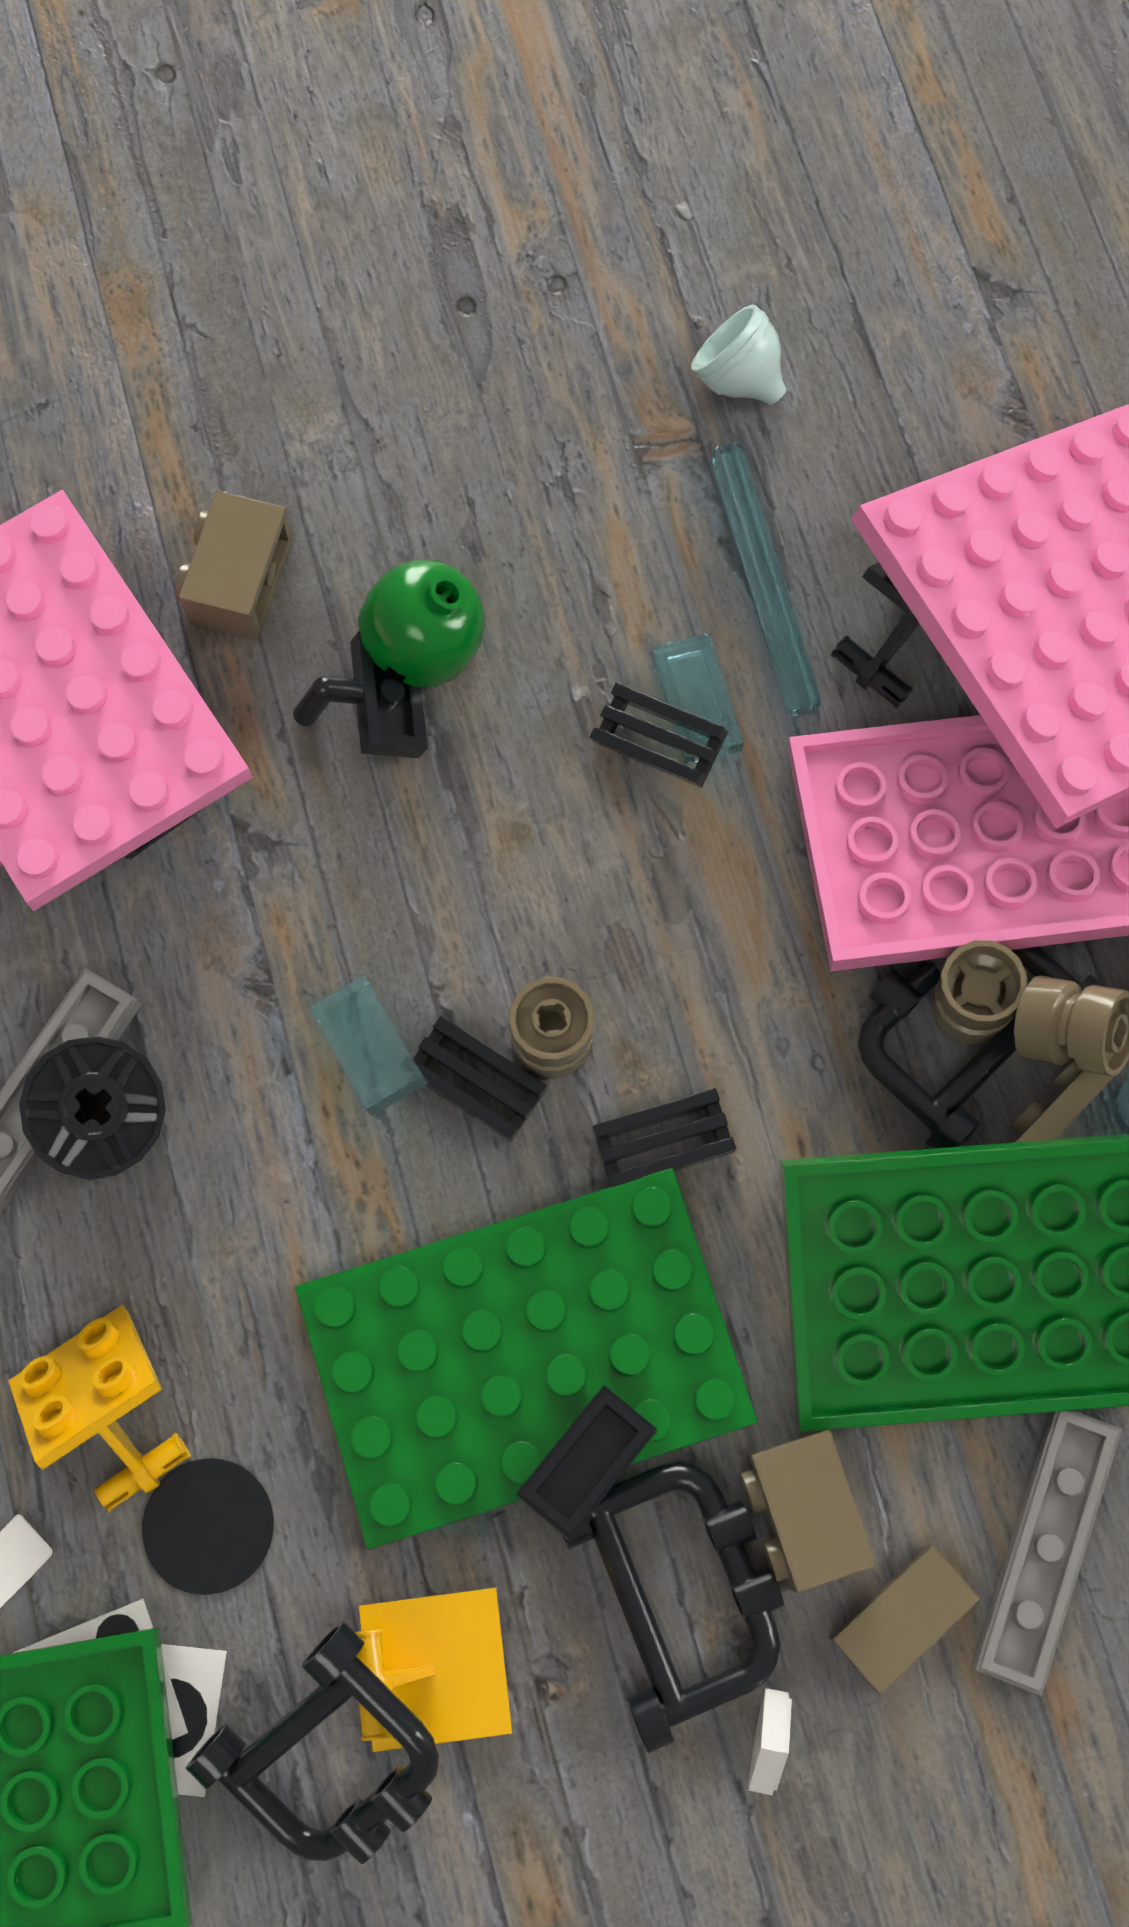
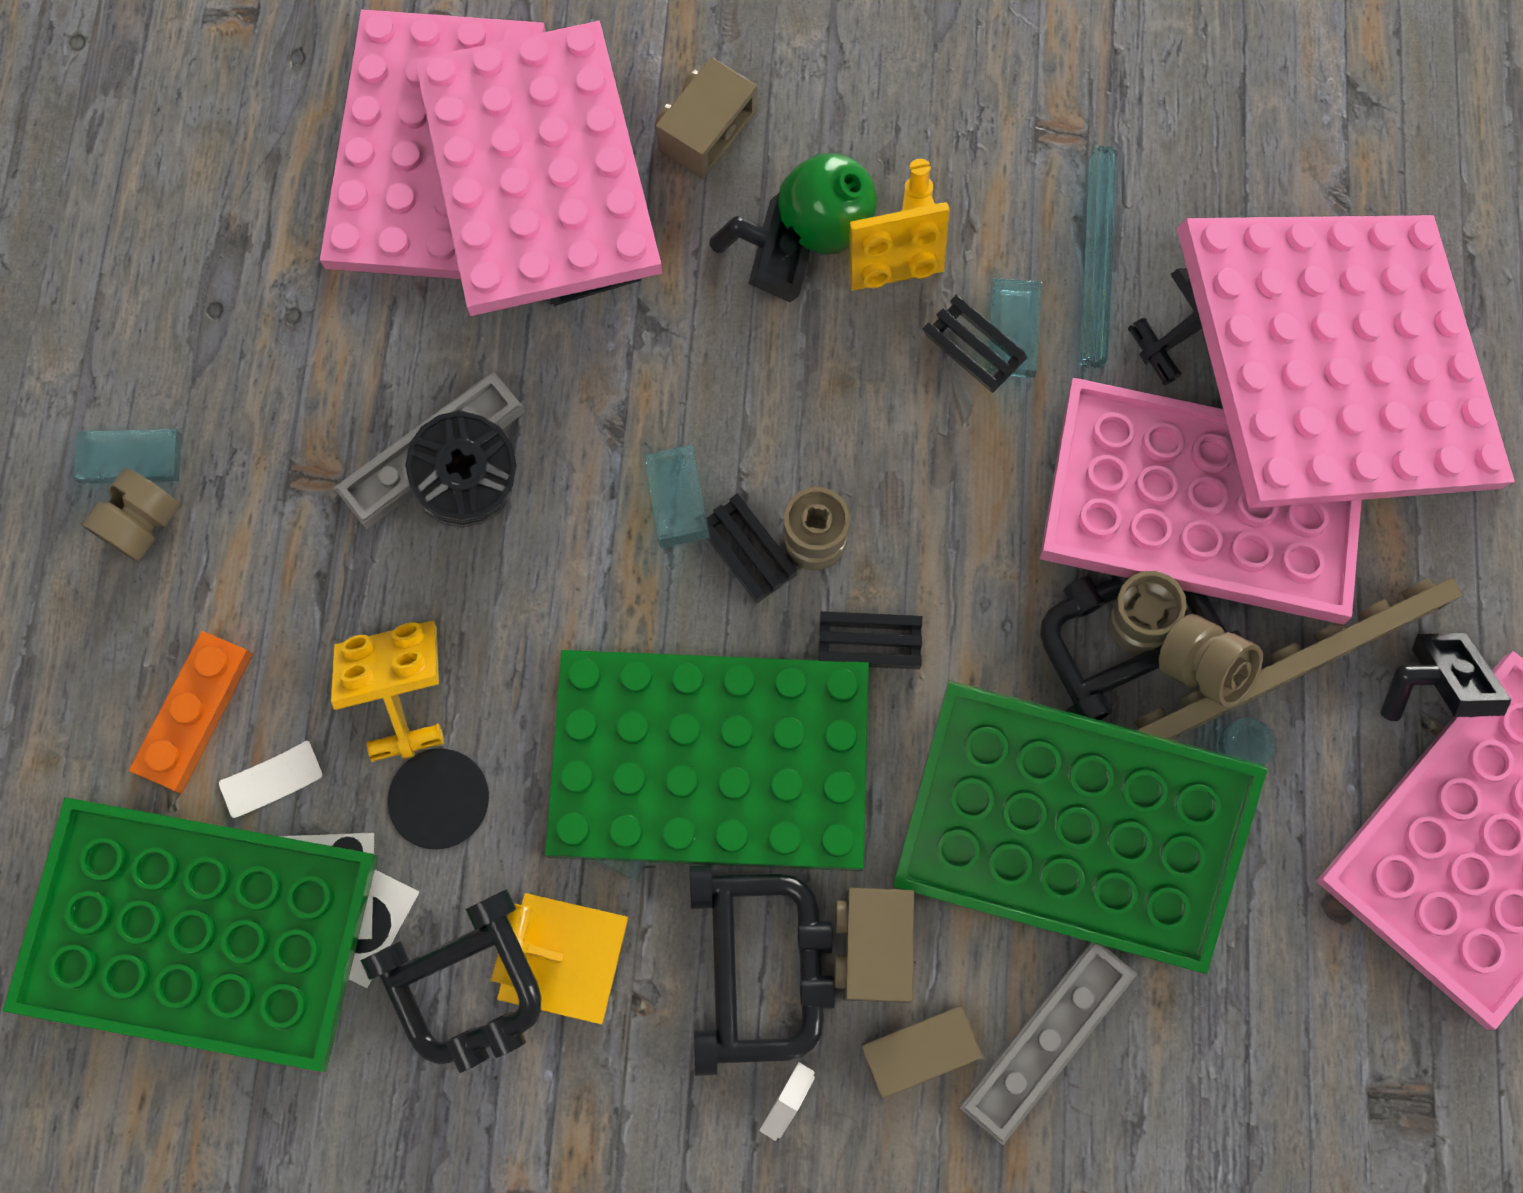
camera: 20 degrees right, 0 degrees up
(532, 643) = (901, 242): none -> yellow plate
(586, 1462) = (725, 849): black tile -> none
(742, 358) = (1141, 86): light aqua helmet -> none

